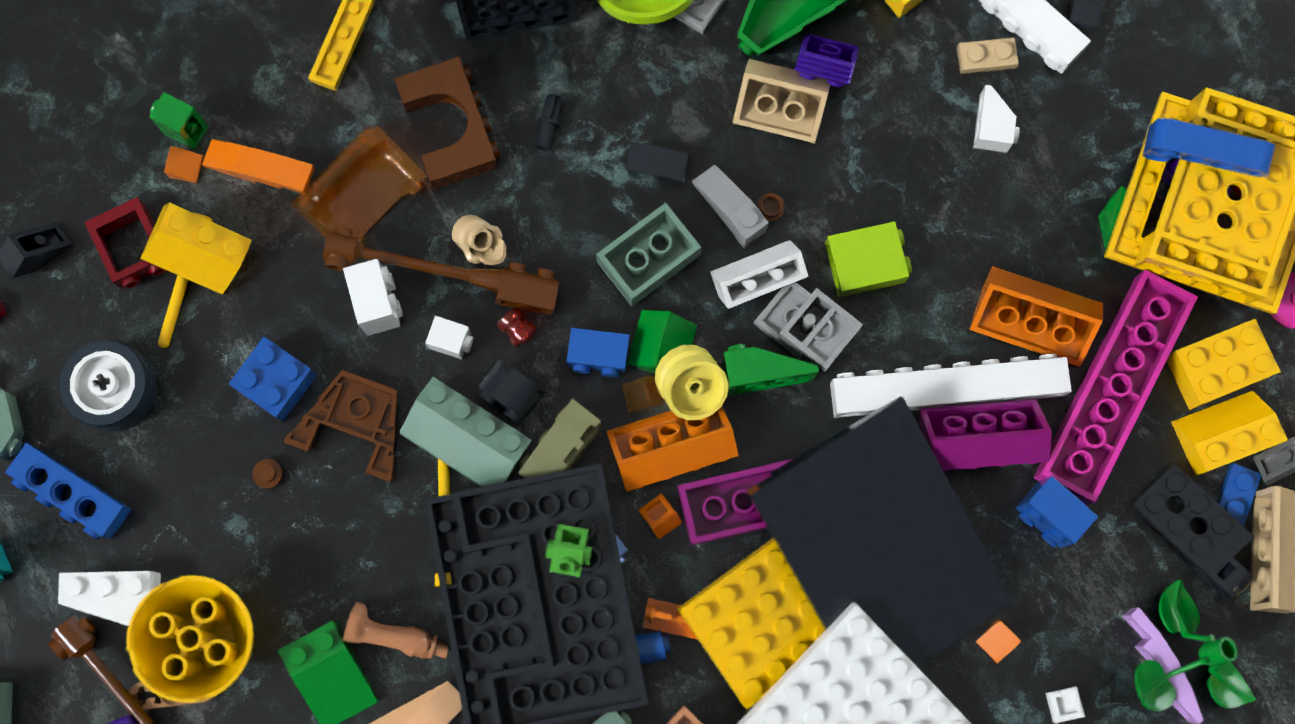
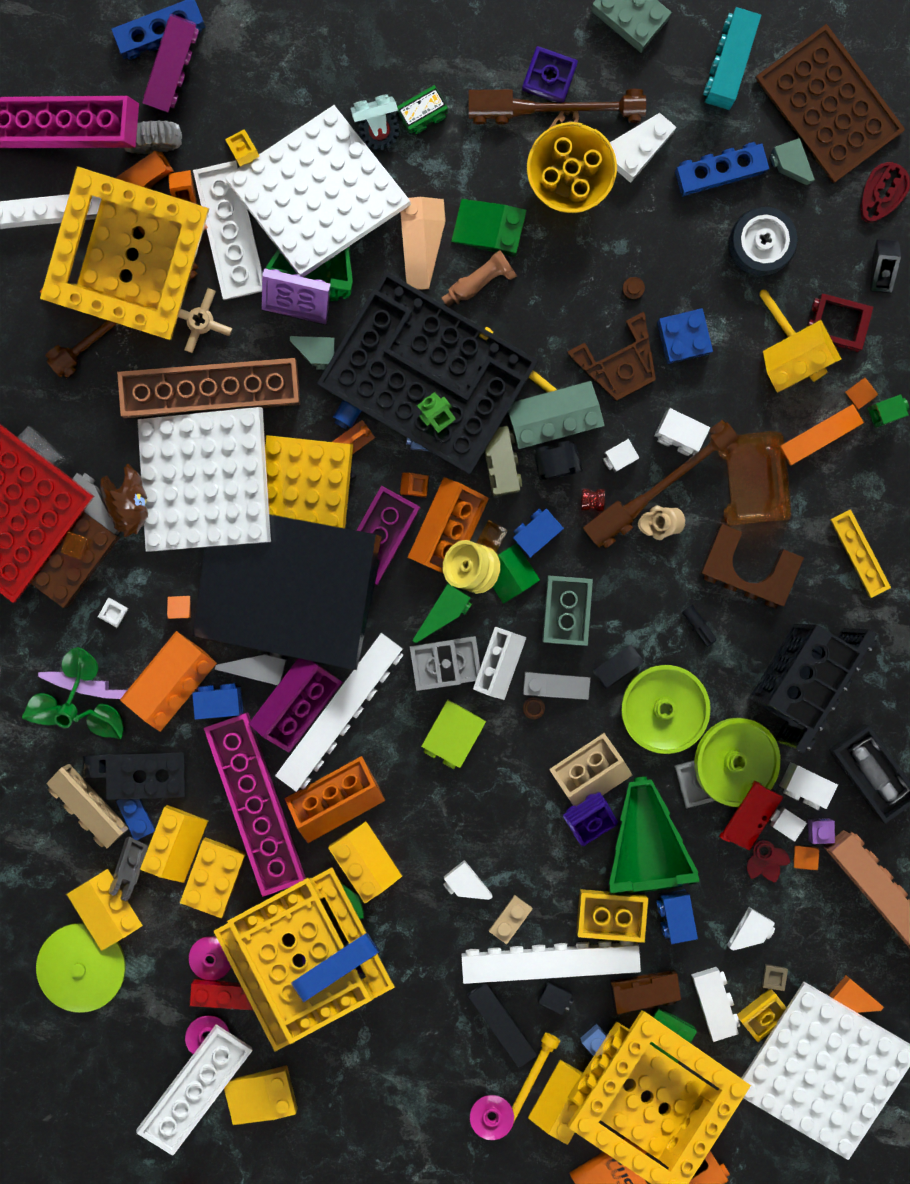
camera: 135 degrees right, 10 degrees up
(658, 81) = (665, 709): none -> lime dish
(986, 508) = (261, 668): none -> light grey slope
(1067, 234) = (365, 862): none -> yellow slope
(1082, 581) = (168, 681): none -> orange slope

